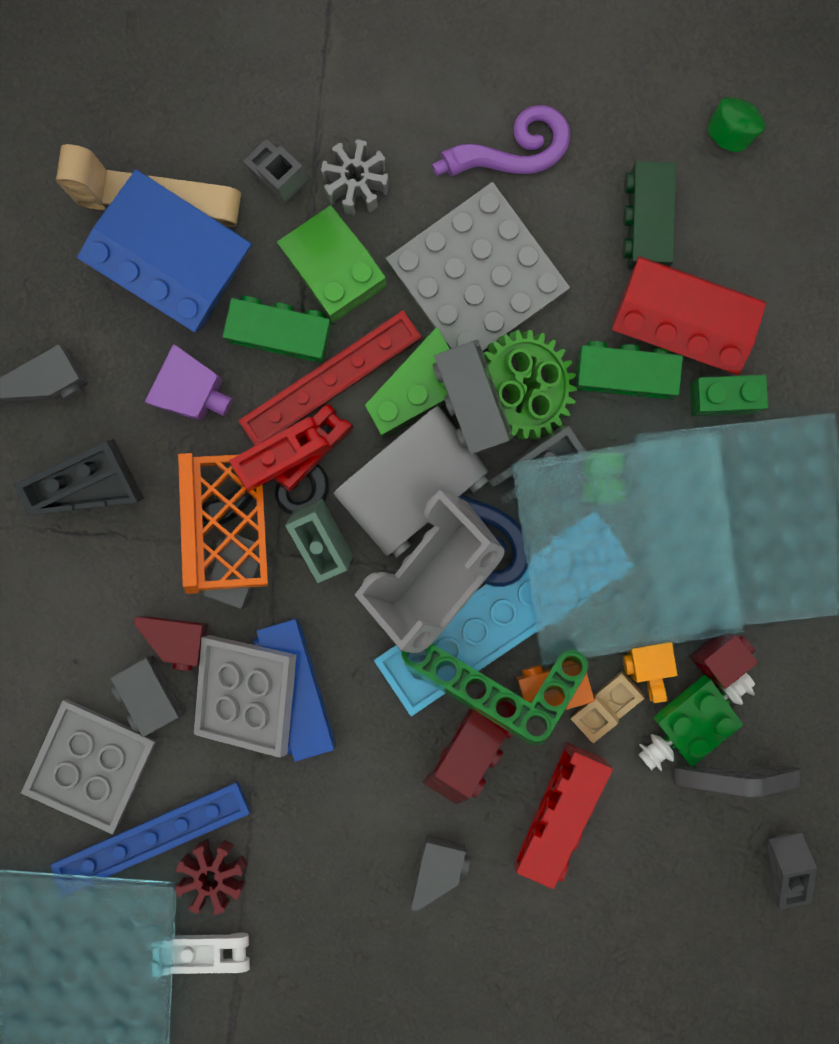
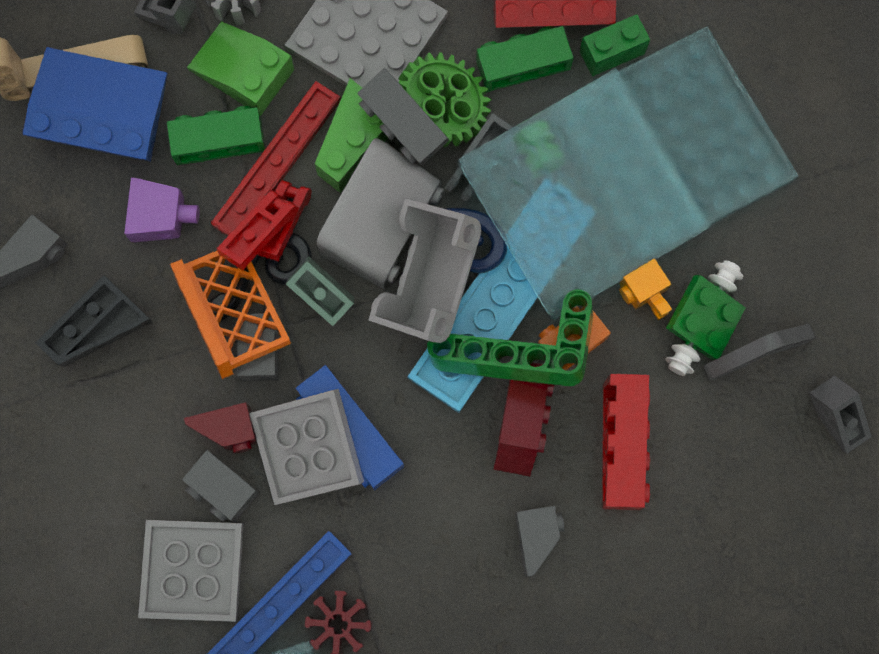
camera: 25 degrees left, 10 degrees down
(610, 705) = (625, 339): tan slope -> none
(724, 658) = (704, 252): dark red brick -> none

